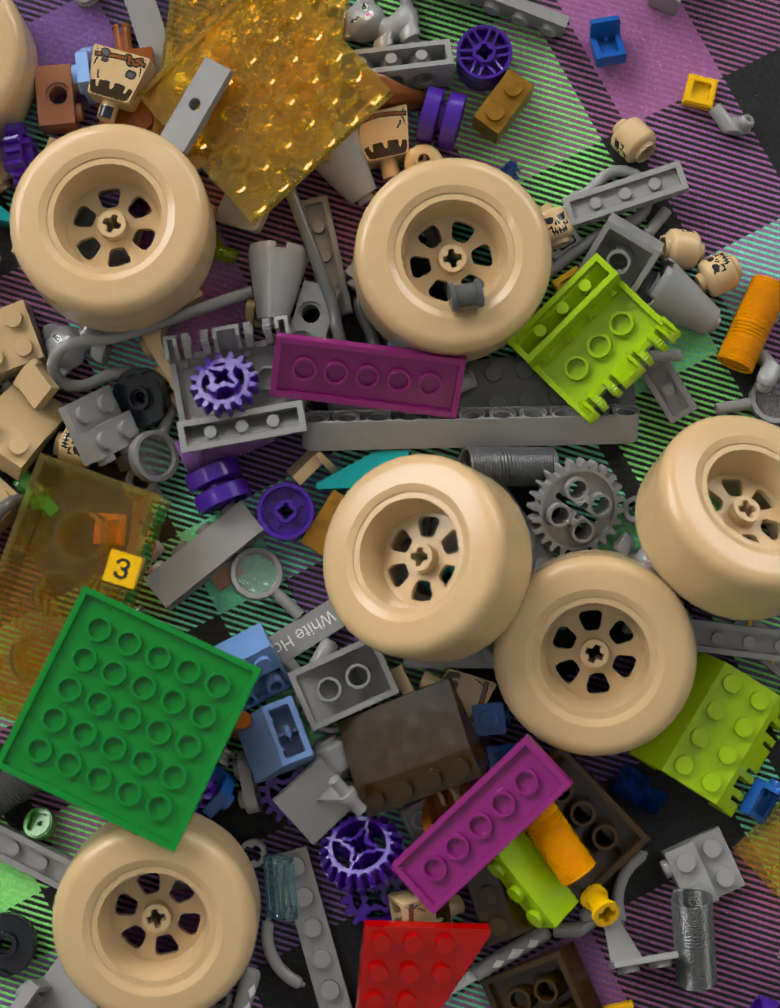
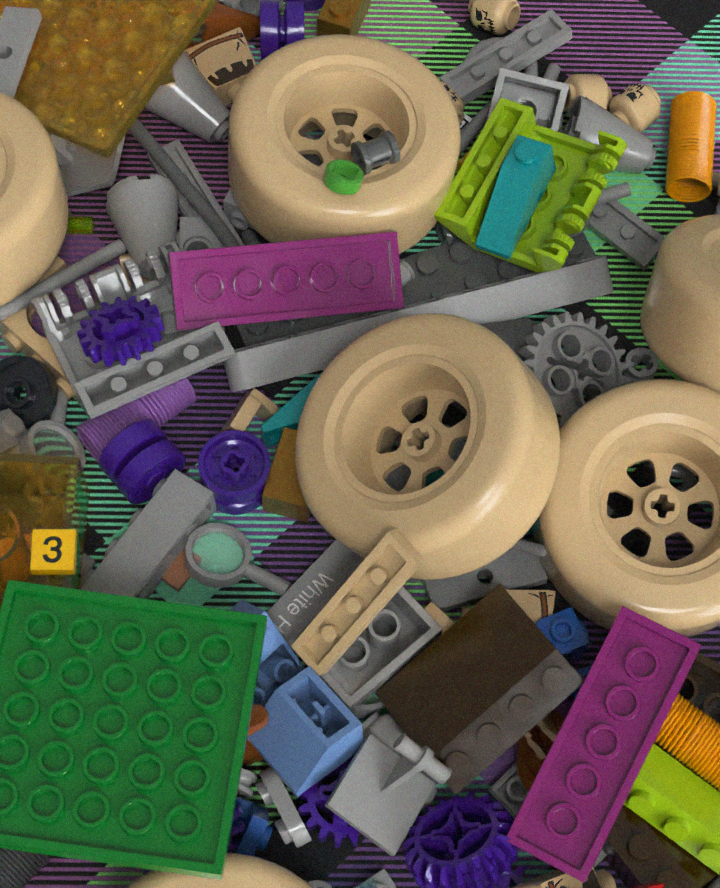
camera: 25 degrees left, 20 degrees down
(335, 669) = (358, 602): none -> tan plate
(431, 312) = (343, 177): none -> bright green tile
(578, 347) = (516, 195): none -> teal slope

